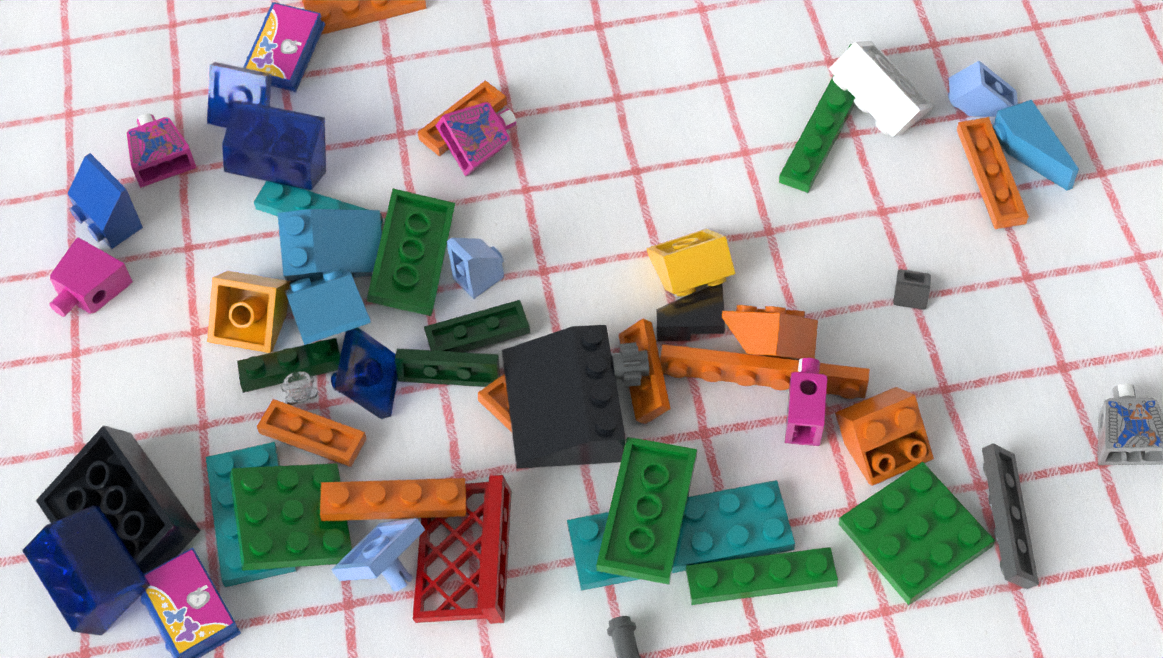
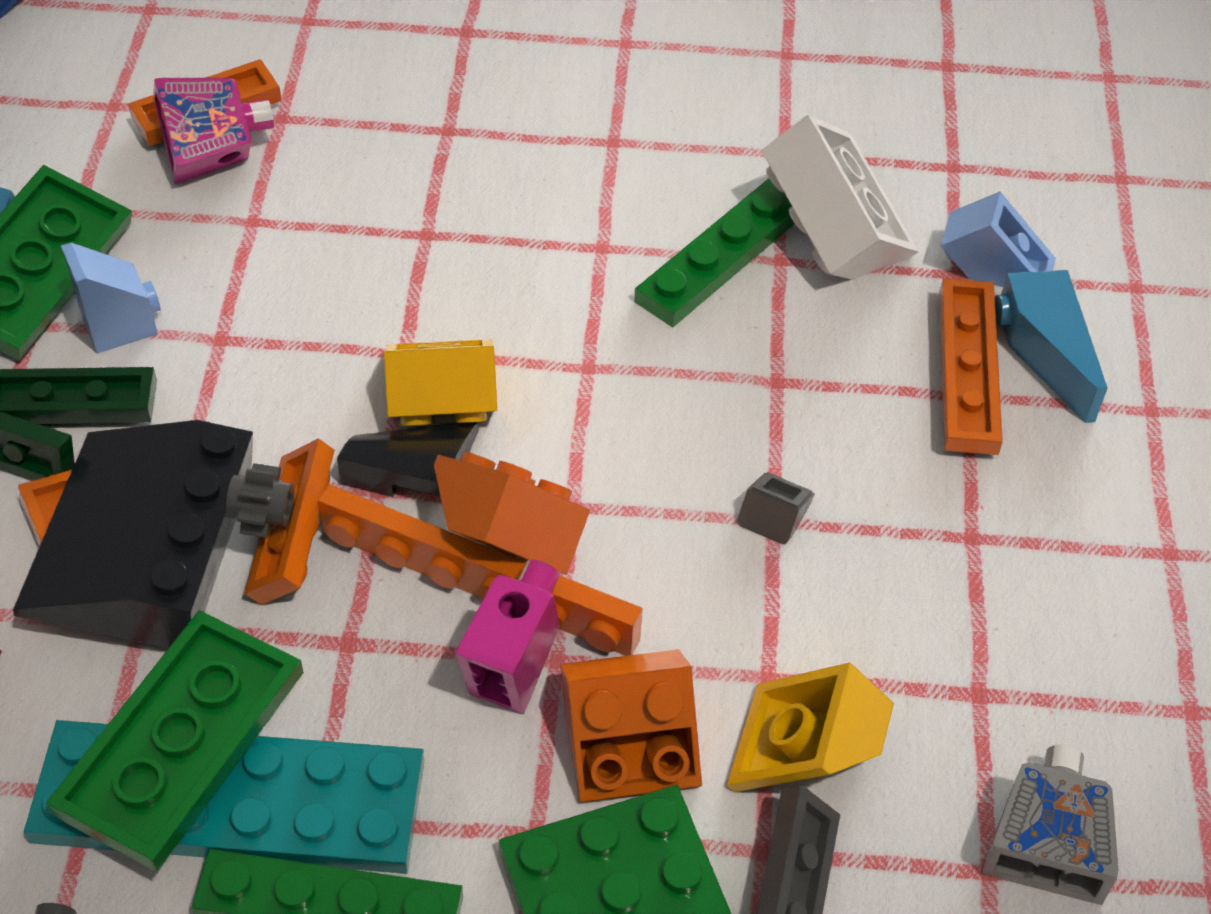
camera: 10 degrees right, 5 degrees down
(982, 411) = (810, 727): none -> yellow slope

